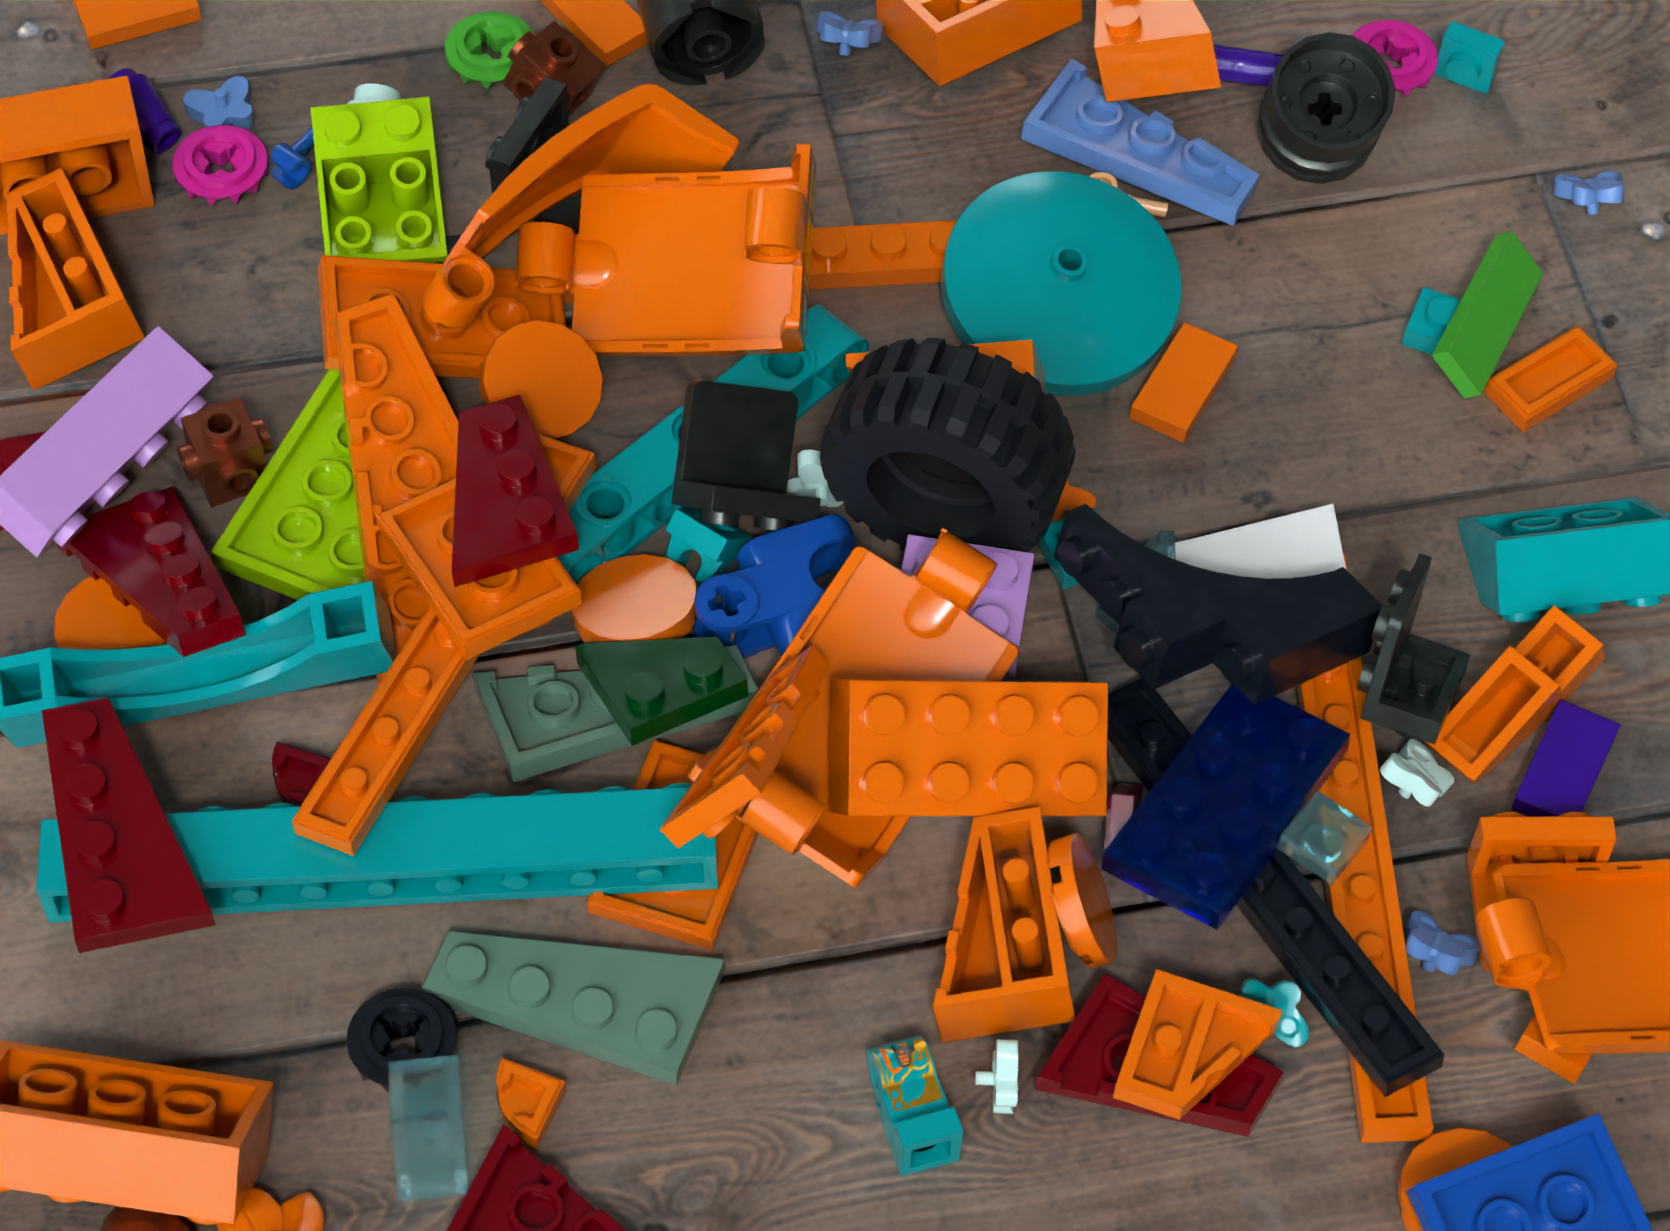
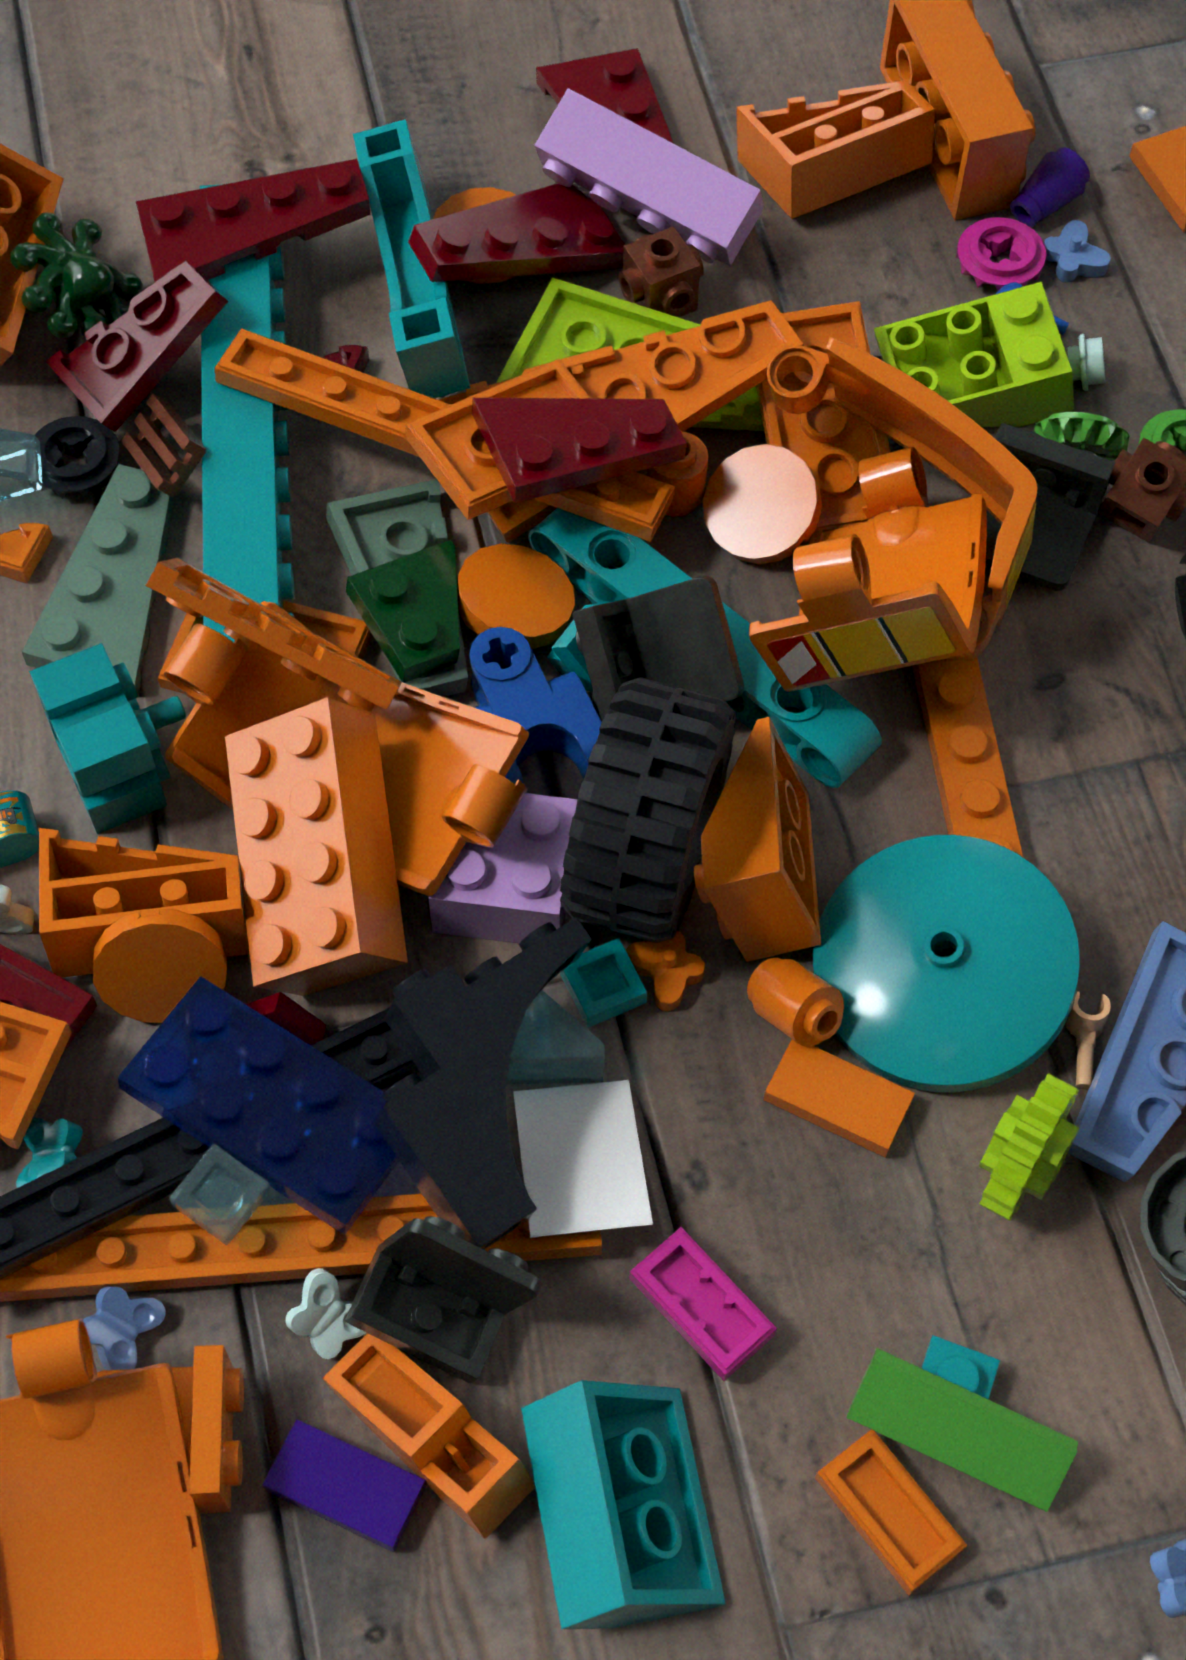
camera: 90 degrees right, 5 degrees up
(155, 1026) = (72, 277): none -> dark green animal
(277, 952) = (136, 351): none -> dark red wing
(372, 957) = (150, 434): none -> copper tile
(488, 113) = (1085, 432): none -> bright green gear
(816, 959) = (106, 735): none -> teal brick
(1104, 393) = (795, 1001): none -> orange brick
(1252, 228) = (1029, 1147): none -> lime gear
(1388, 490) = (702, 1303): none -> dark pink plate

